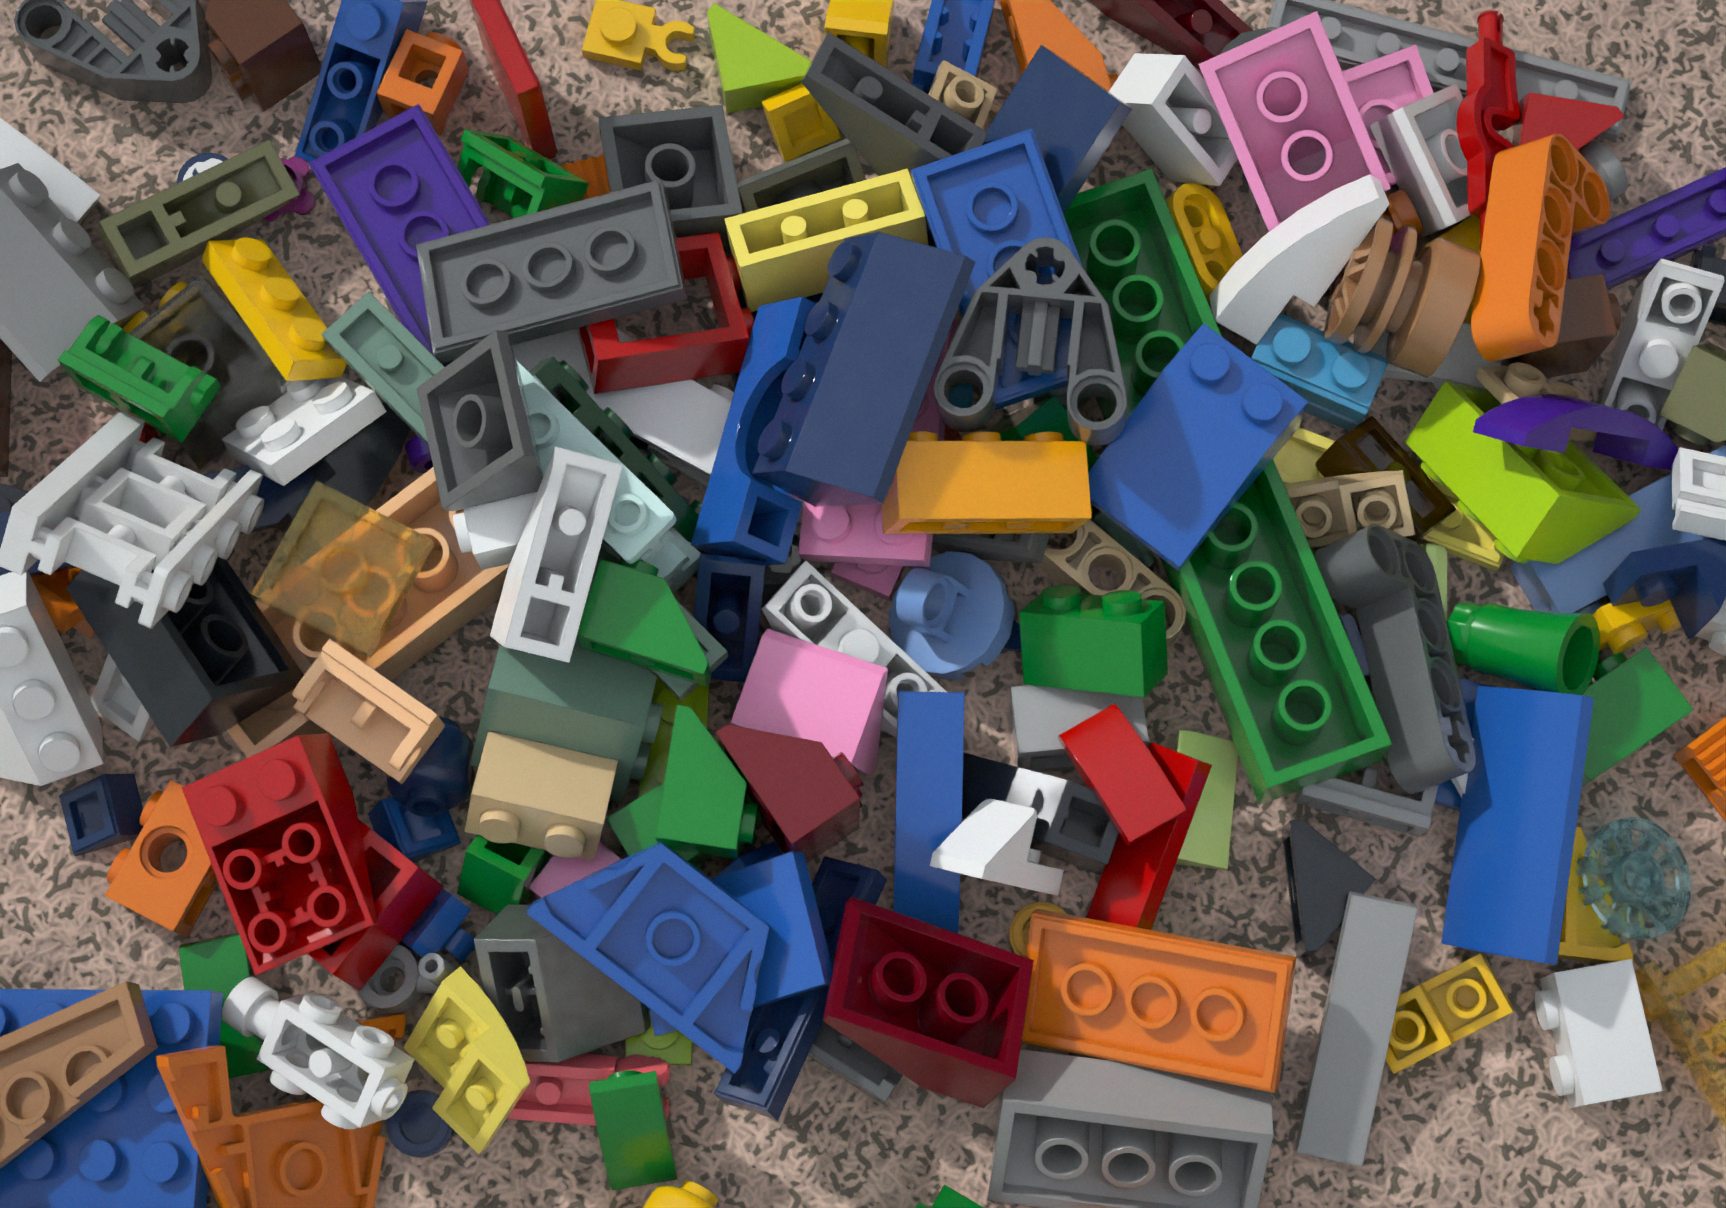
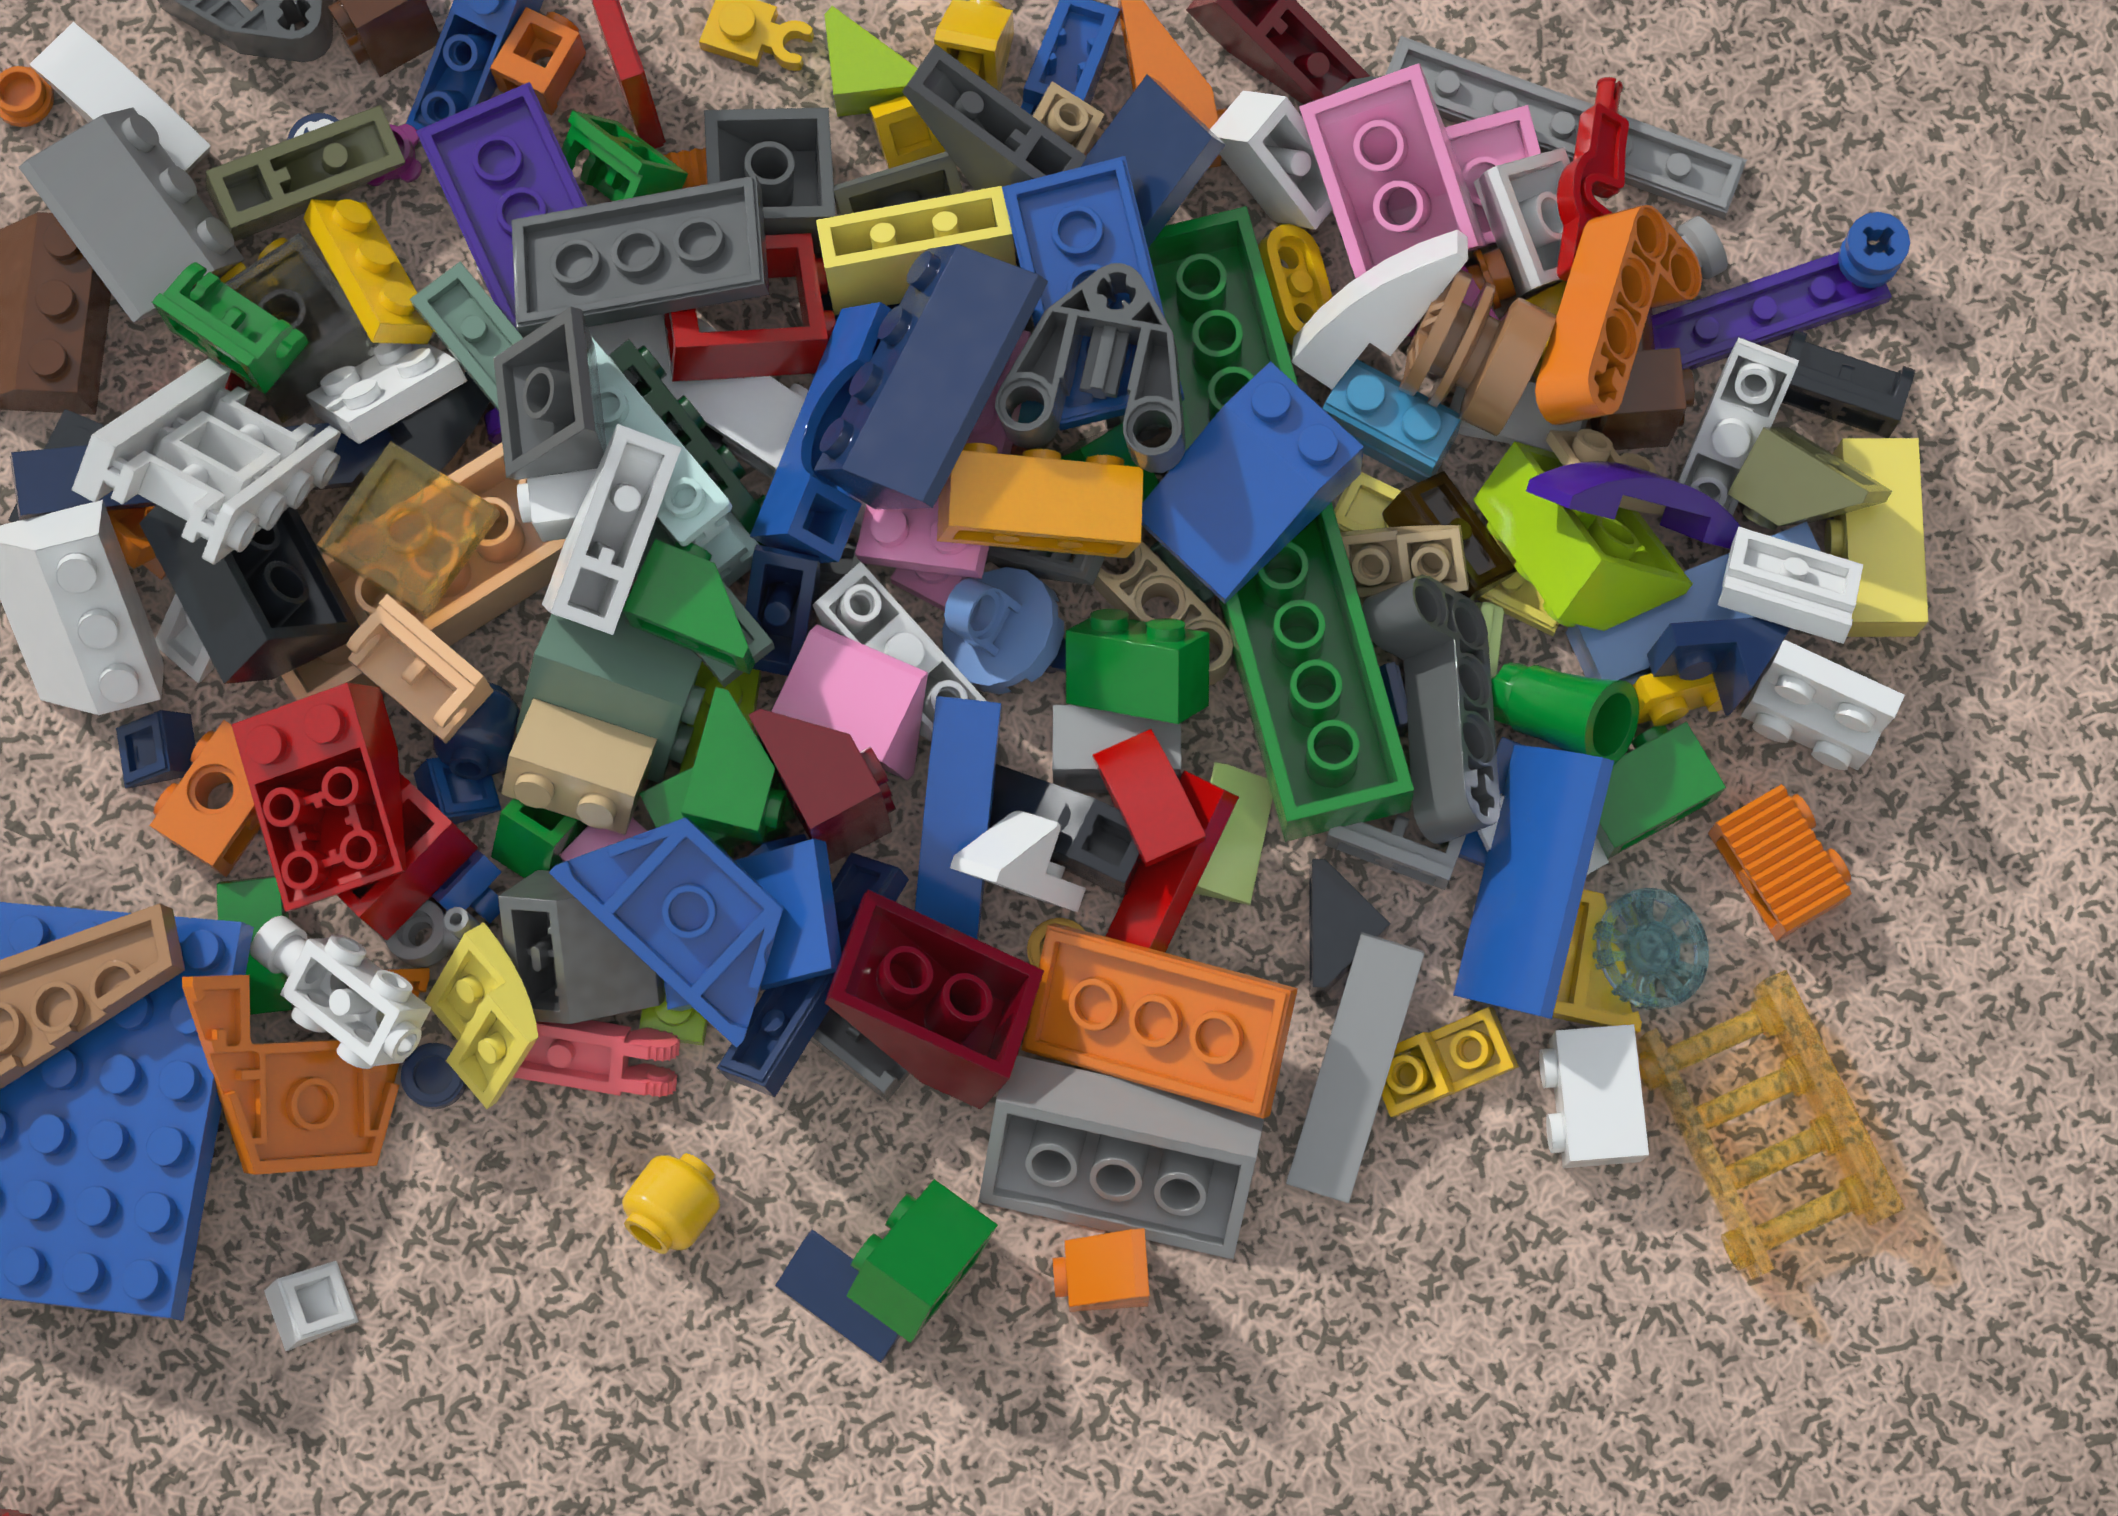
camera: 10 degrees right, 0 degrees up
(633, 1129) = (637, 1097): green slope -> none
(1572, 118) = (1671, 193): red slope -> none

